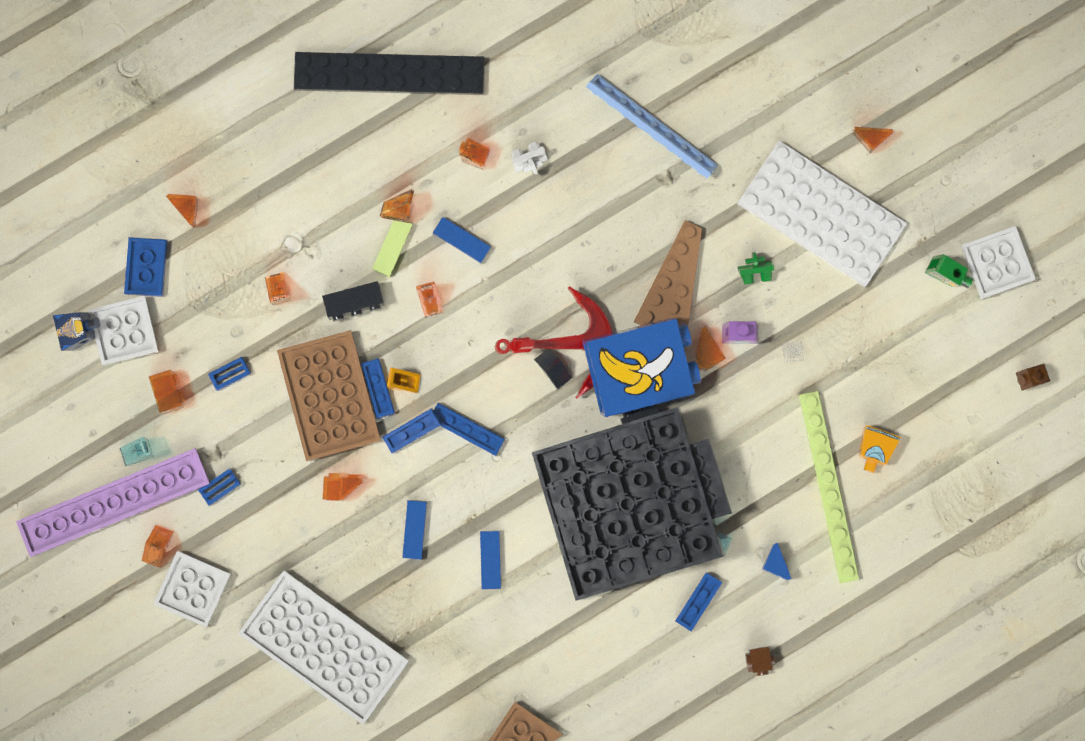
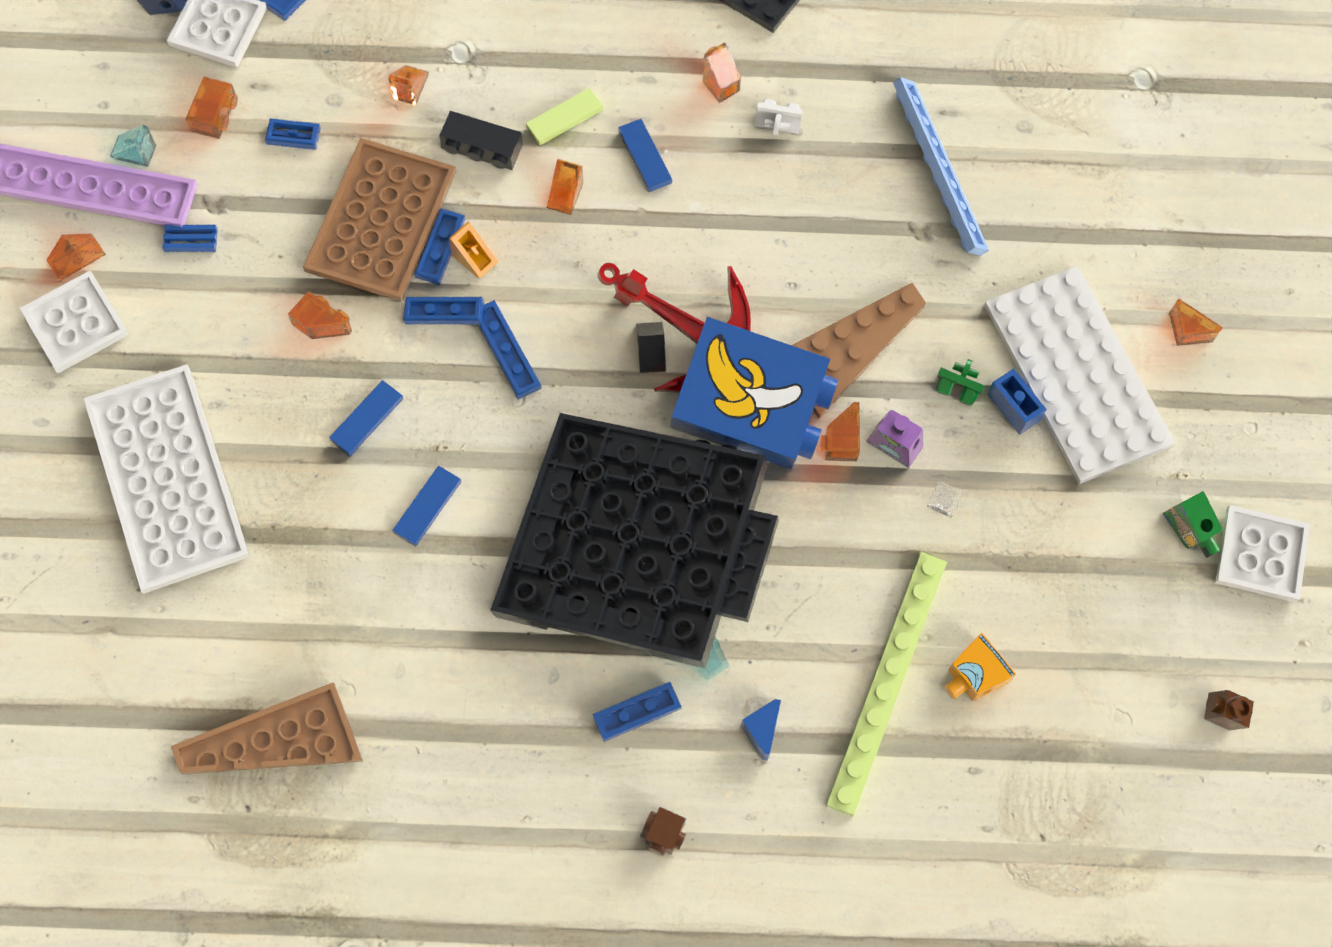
camera: 30 degrees right, 15 degrees down
(398, 207) = (602, 81): clear orange slope -> none
(798, 261) = (1016, 401): none -> blue brick

